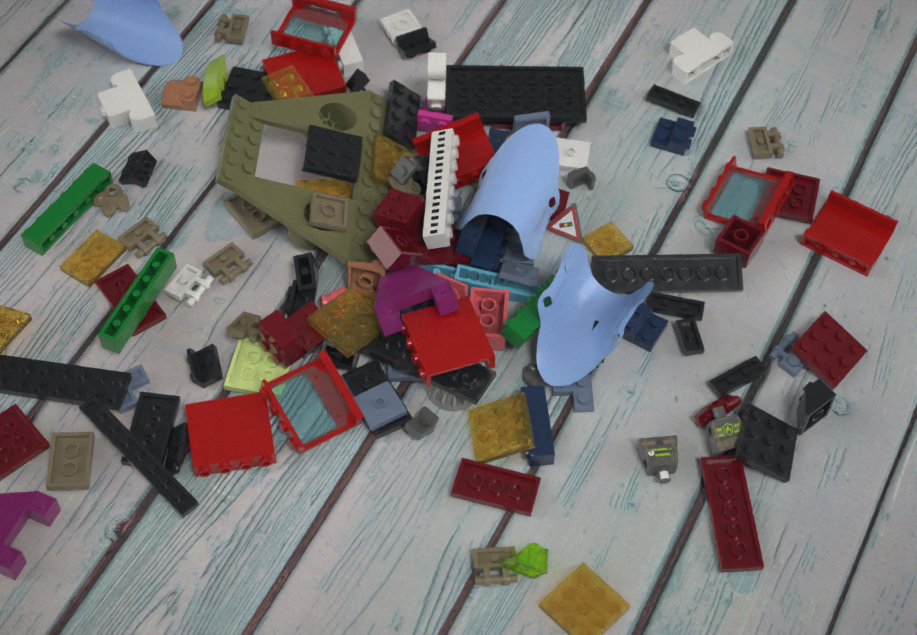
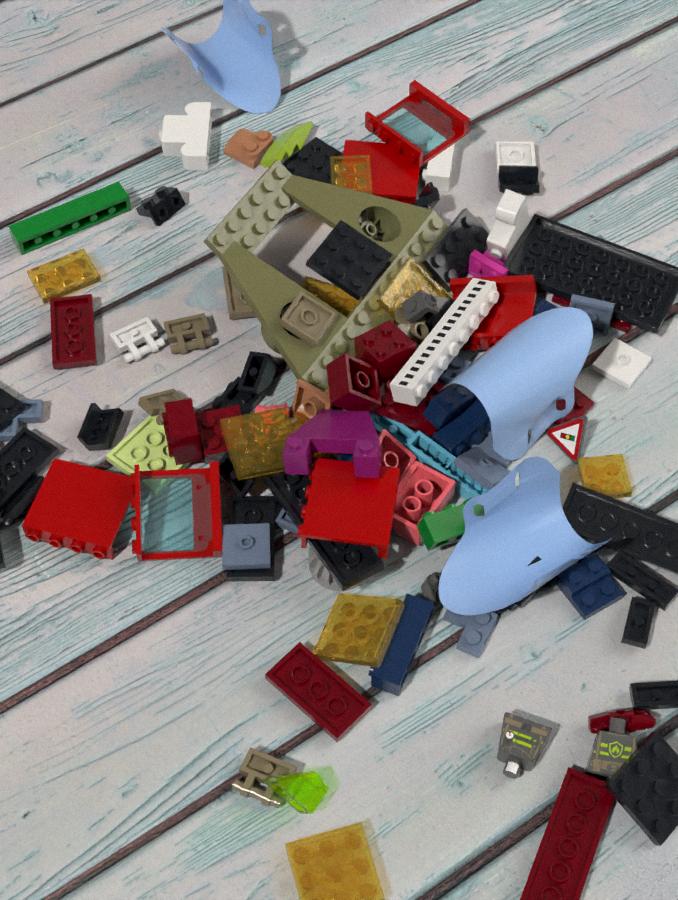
camera: 30 degrees right, 0 degrees up
(111, 202) = (115, 227): dark tan plate -> none
(137, 300) = (72, 333): green brick -> none
(139, 233) = (122, 269): dark tan plate -> none
(236, 30) = (342, 99): dark tan plate -> none
(422, 424) = (279, 587): dark grey bracket -> none
(580, 177) = (616, 391): dark grey bracket -> none

